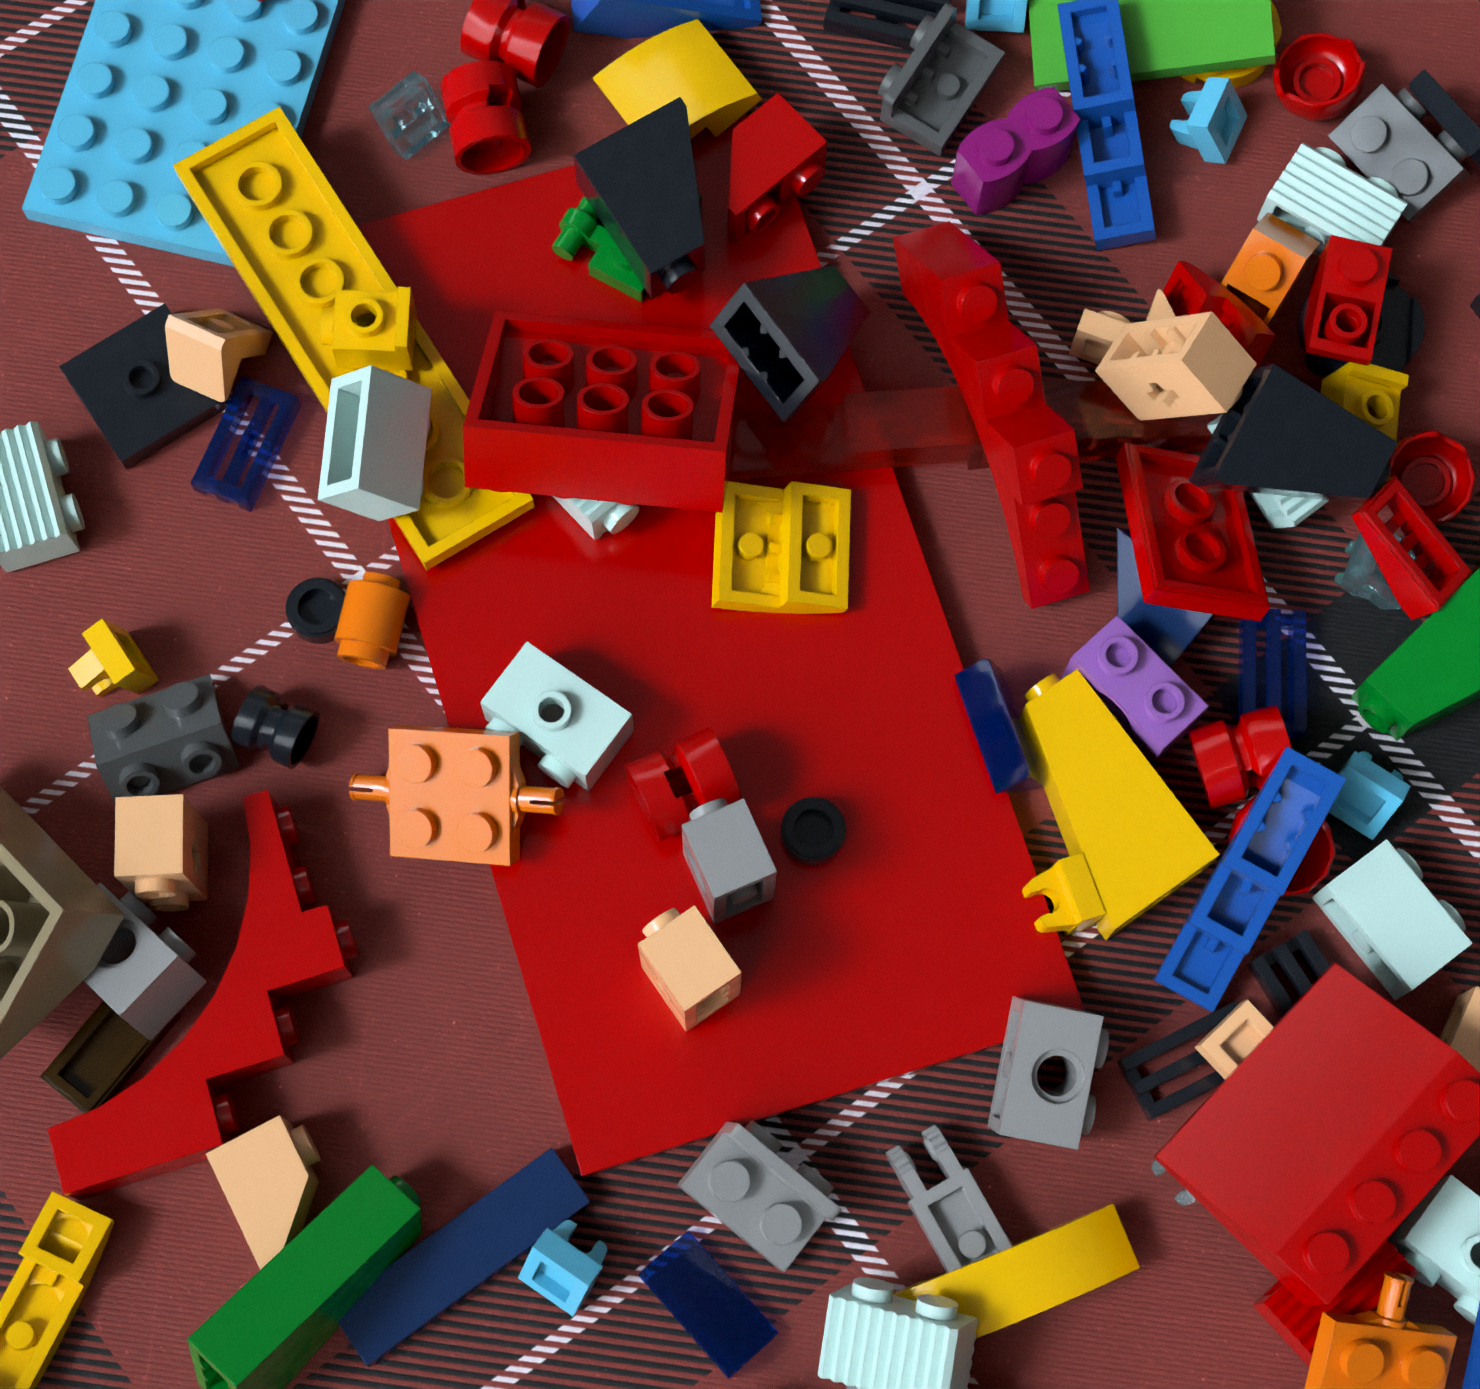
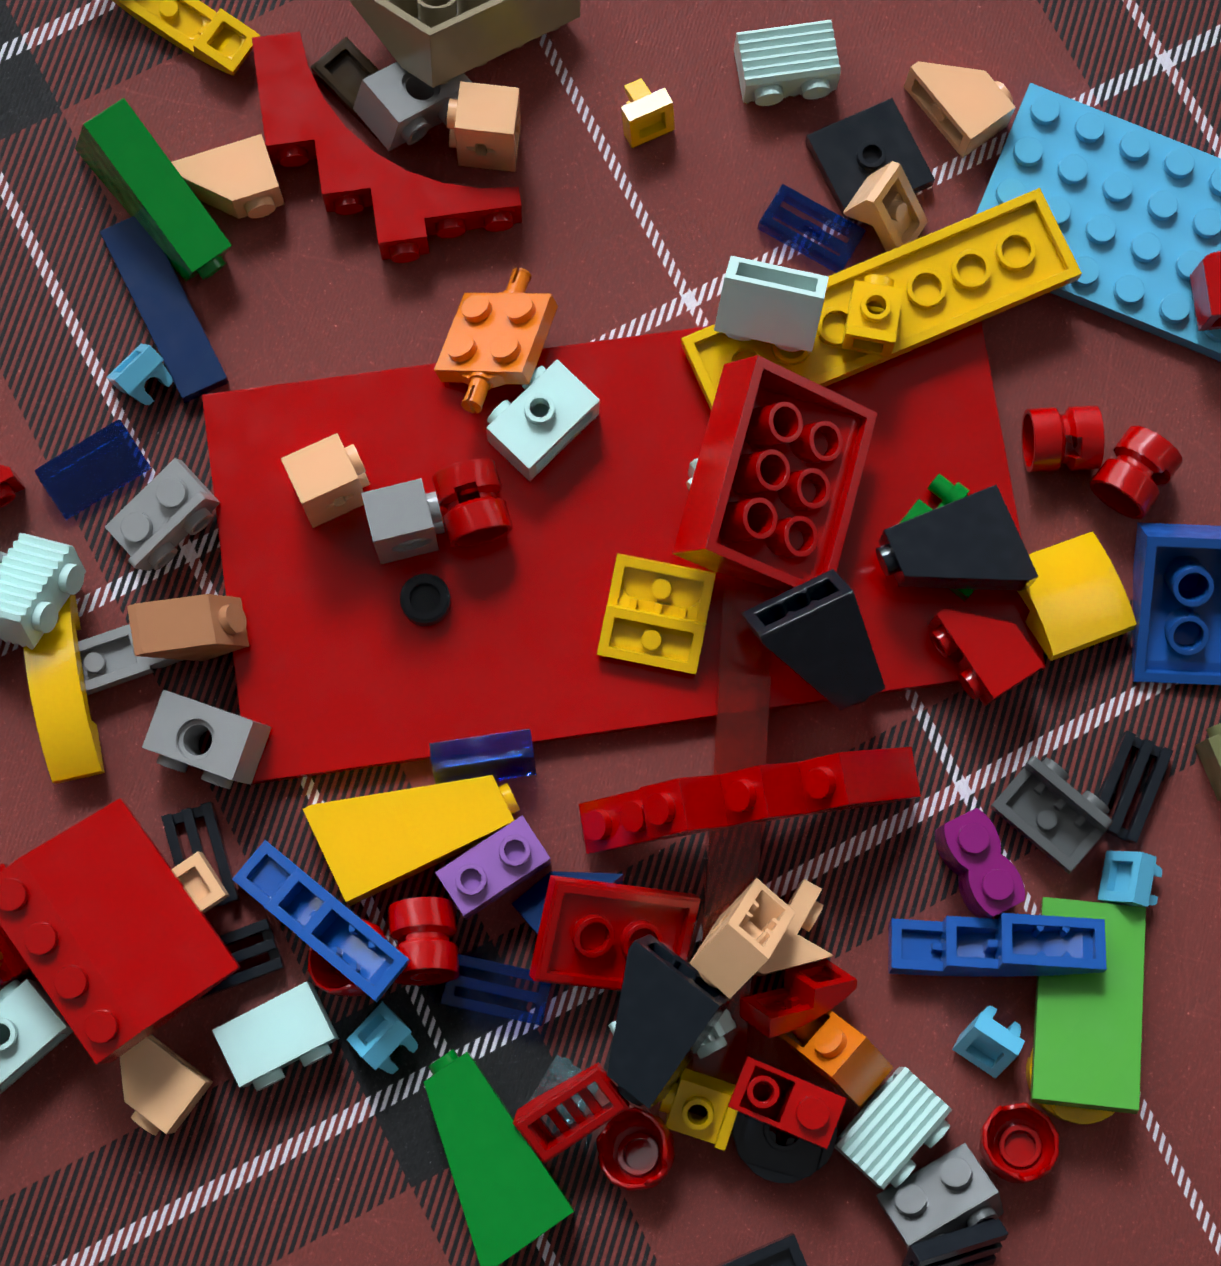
camera: 95 degrees right, 5 degrees up
(60, 283) = (961, 103): none -> light nougat slope
(162, 740) = (580, 141): dark grey bracket -> none
(271, 725) = (577, 219): black wheel -> none
(315, 609) = (667, 266): black tile -> none
(371, 621) = (648, 300): orange brick -> none
(409, 115) = (1074, 379): clear light blue tile -> none
(910, 1116) = (188, 627): none -> nougat slope
(1072, 894) = (341, 786): yellow tile -> none

